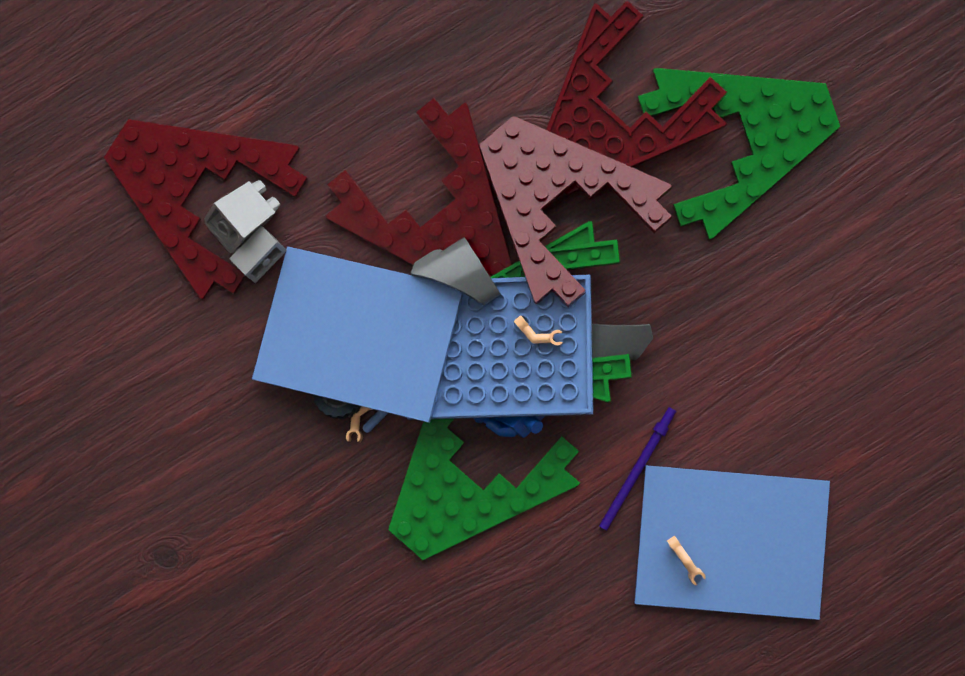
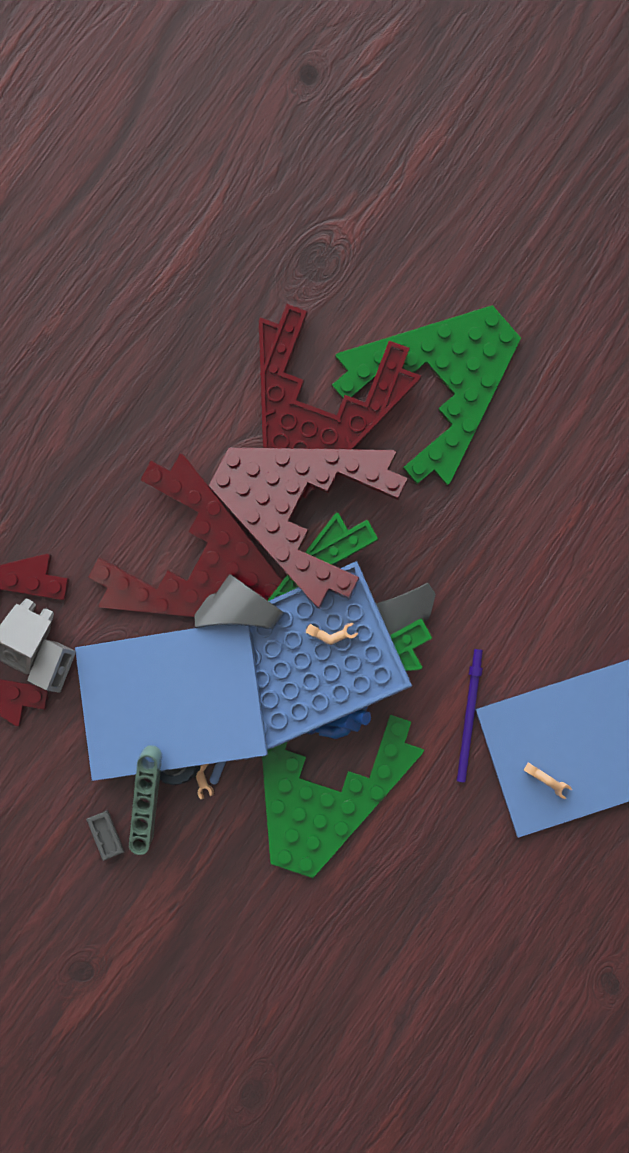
camera: 25 degrees left, 0 degrees up
(242, 437) = (105, 835): none -> dark grey plate
(302, 411) = (147, 791): none -> sand green beam

